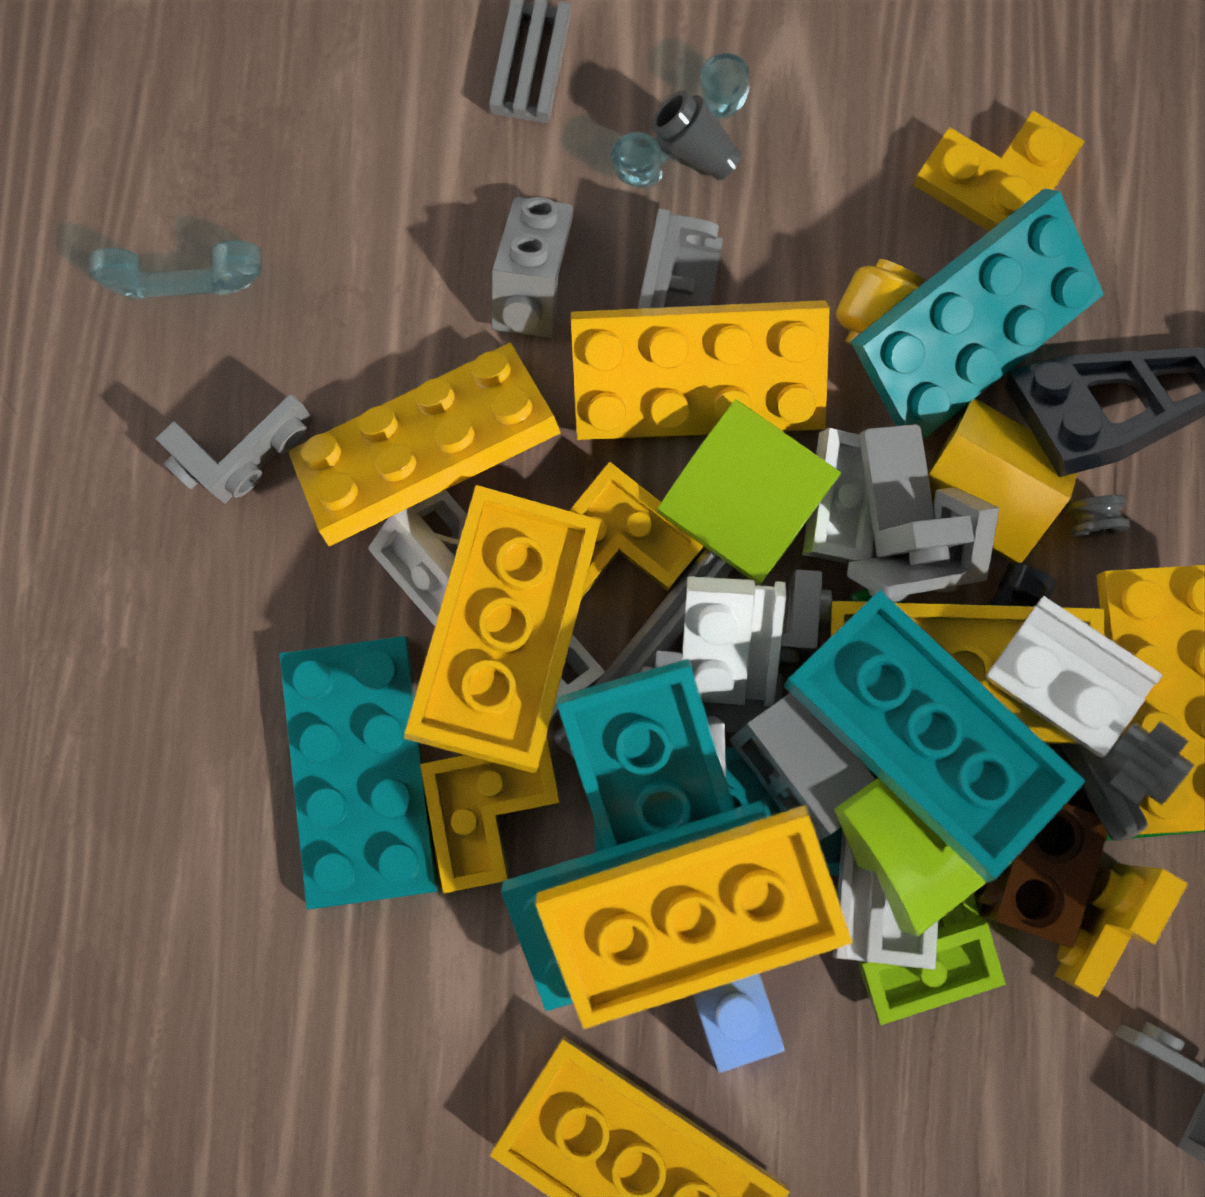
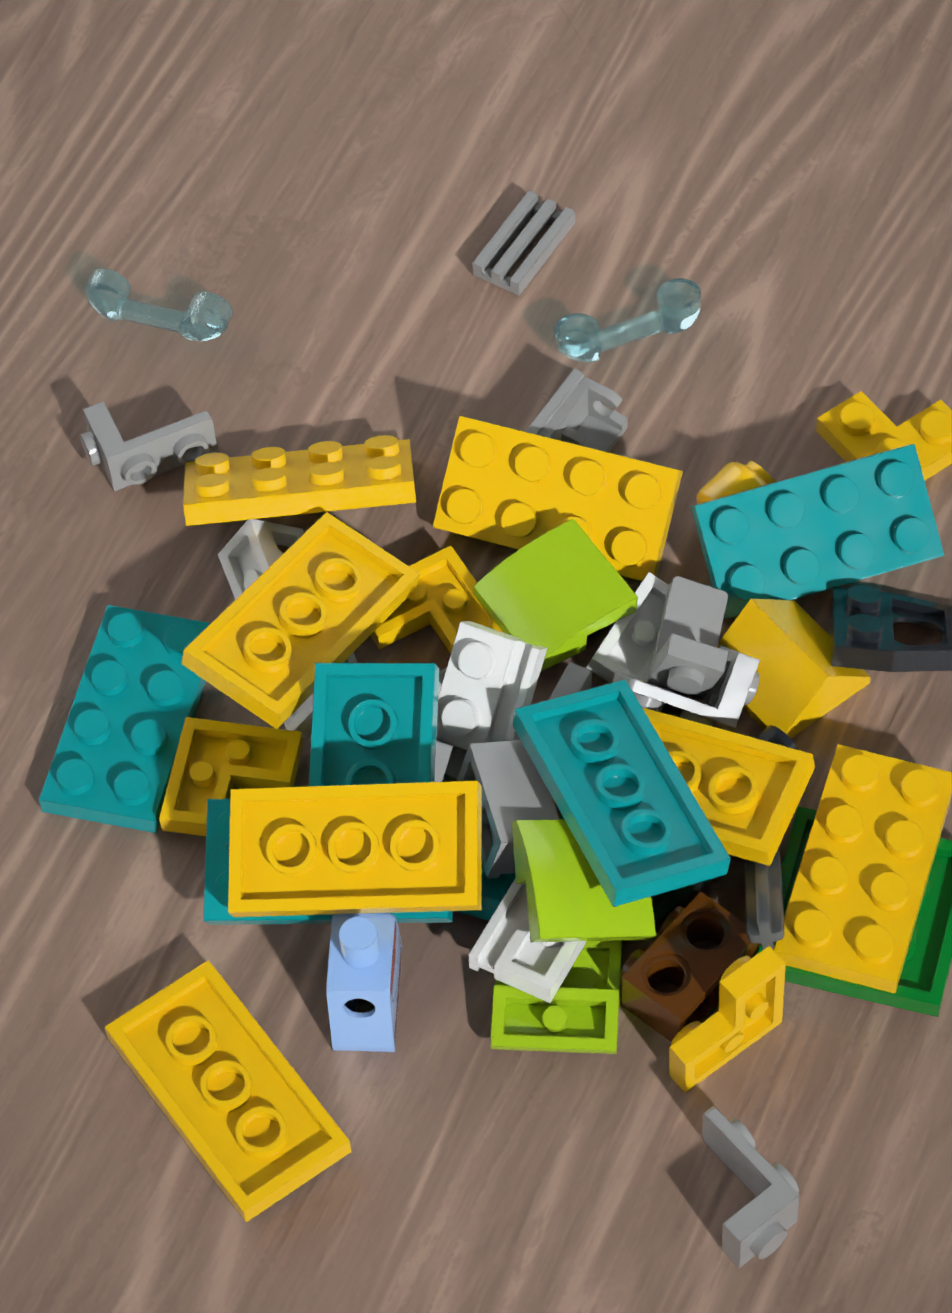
camera: 20 degrees right, 25 degrees down
(529, 266) = (443, 385): light grey bracket -> none
(694, 134) = (634, 331): dark grey cone -> none
(1073, 677) = (759, 791): white plate -> none
(1098, 516) = (861, 718): dark grey bush -> none
(1148, 763) = (795, 872): dark grey gear -> none

